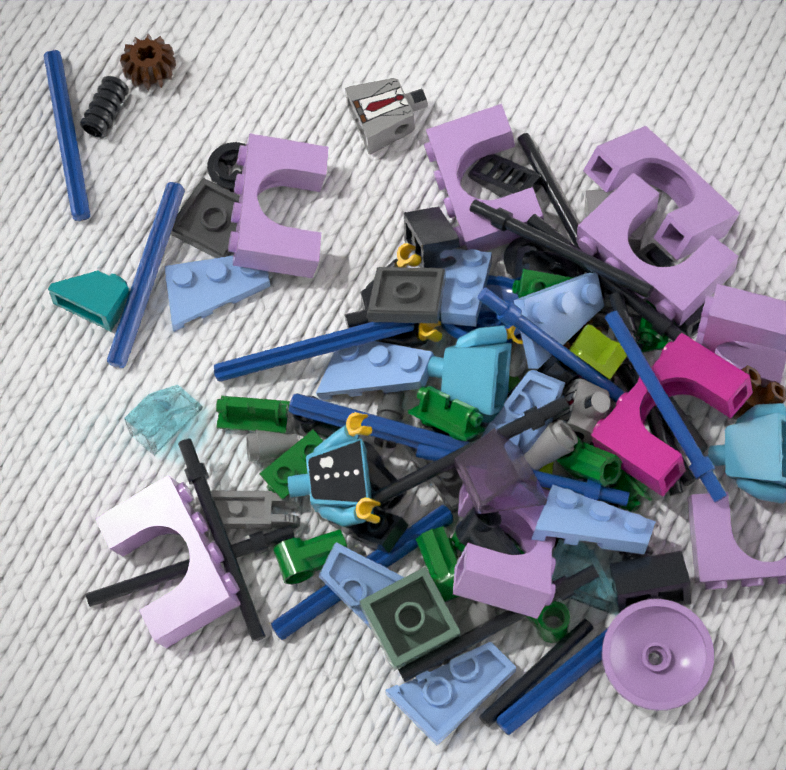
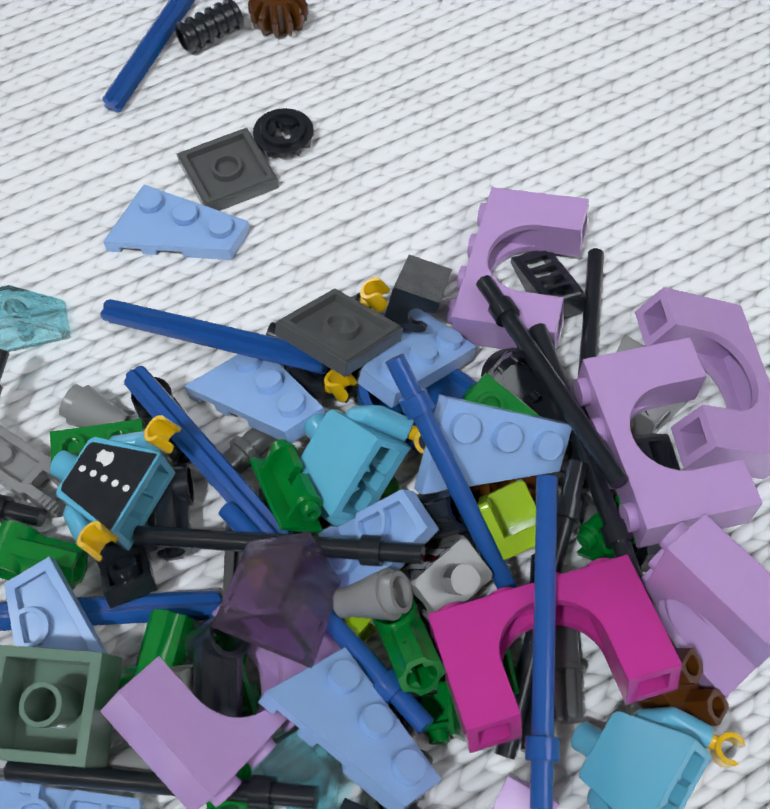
camera: 30 degrees right, 5 degrees down
(92, 297) = (56, 176): teal slope -> none
(145, 275) = (116, 183): blue axle -> none
(252, 414) = (99, 367): green hinge -> none
(257, 239) = (303, 139): lavender arch -> none
(383, 111) = (465, 155): light grey torso -> none

